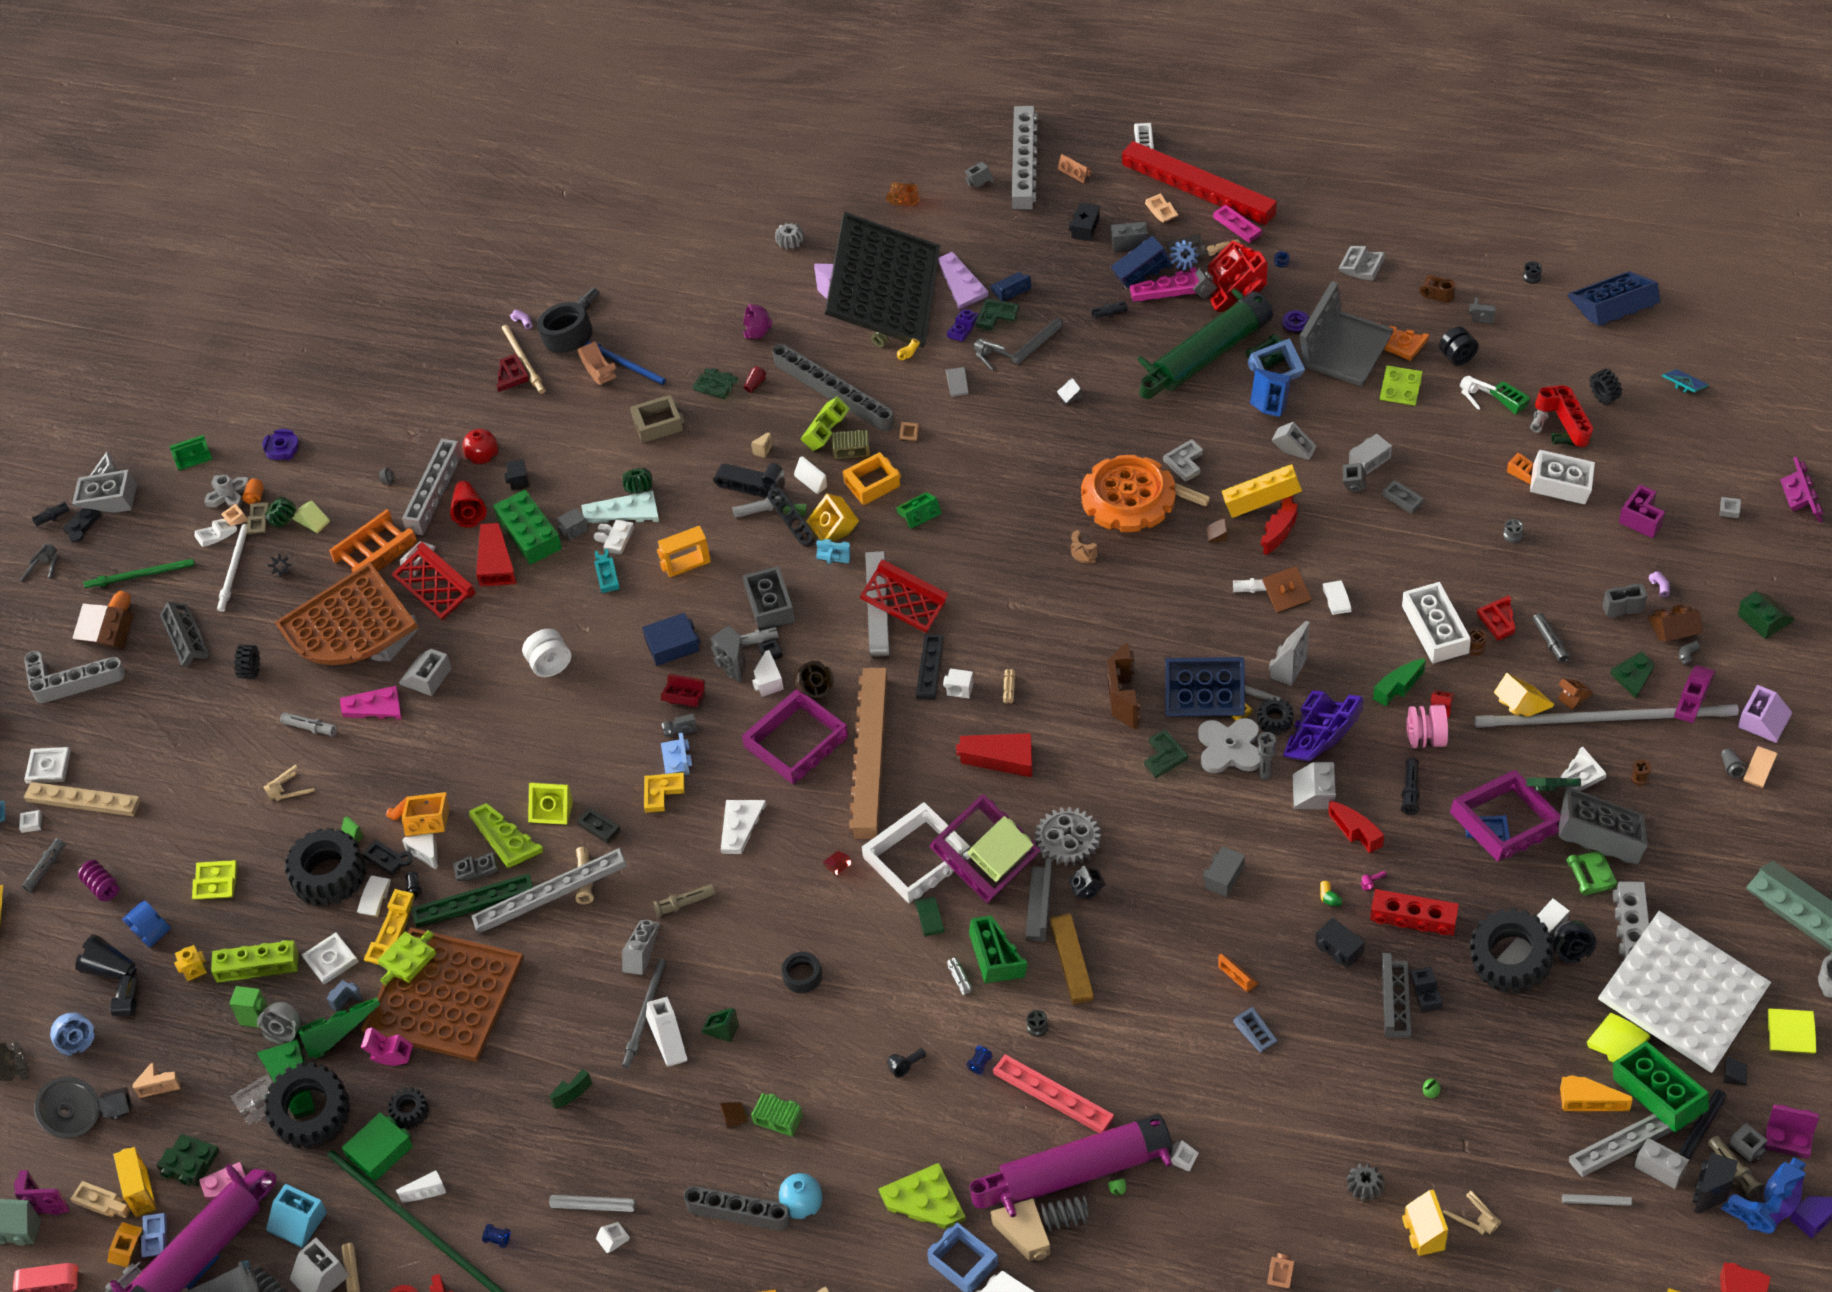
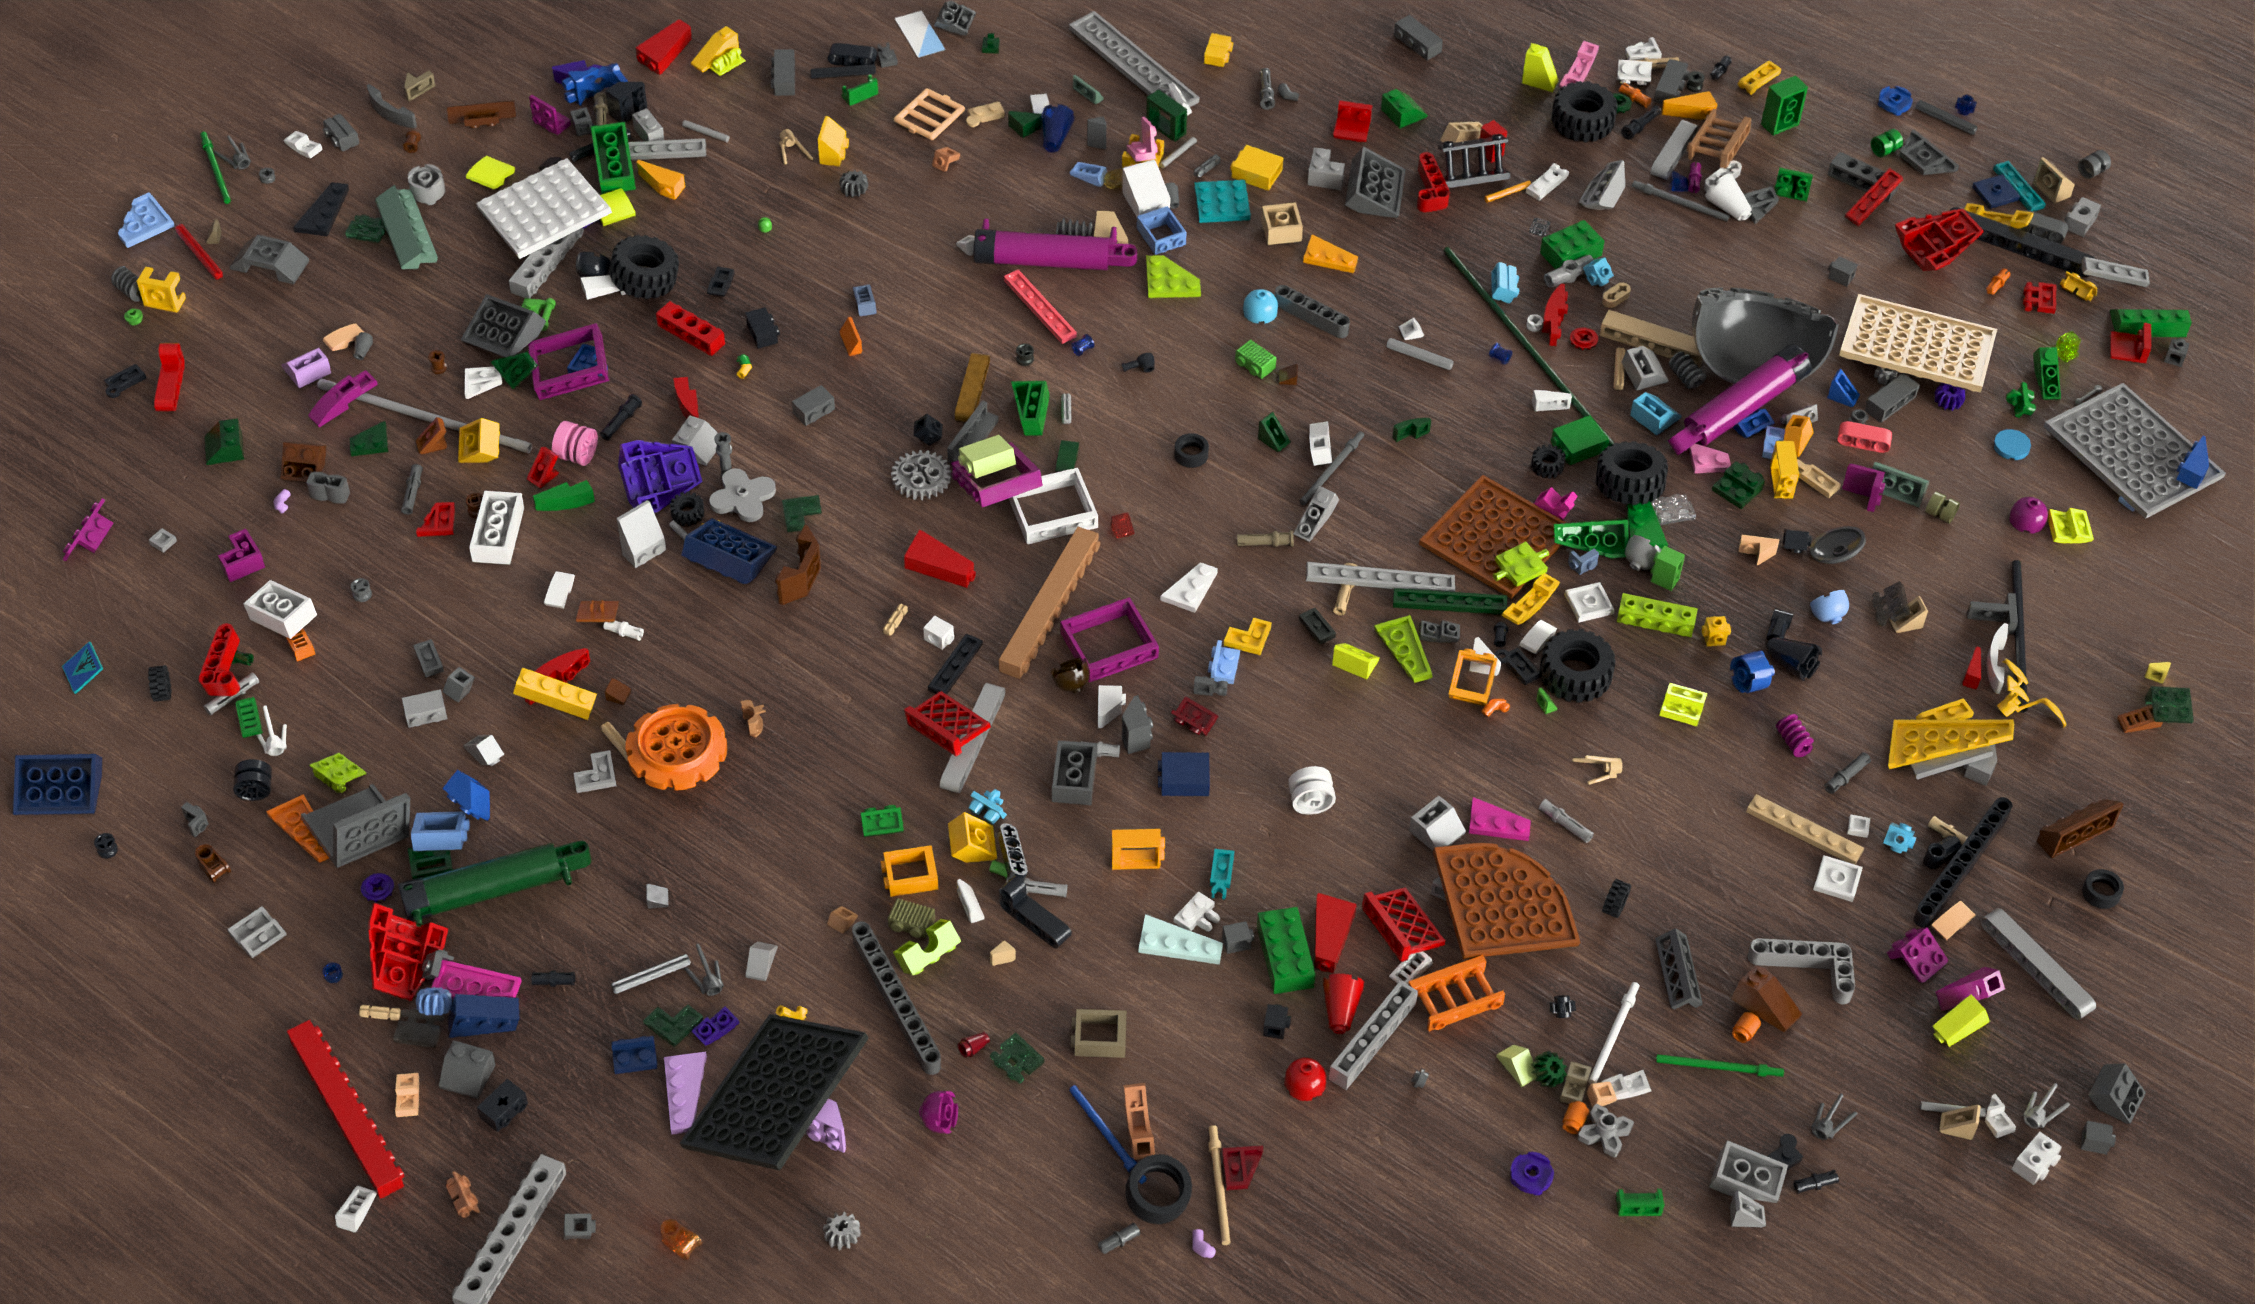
camera: 165 degrees left, 0 degrees up
(637, 480) = (1149, 965): dark green gear -> none
(773, 647) = (1094, 733): black tile -> none
(1237, 223) = (344, 1034): dark pink plate -> none
(1367, 880) = (707, 366): dark pink hand -> none
(1389, 980) = (747, 288): dark grey fence -> none
(1685, 652) = (317, 438): dark grey arm -> none

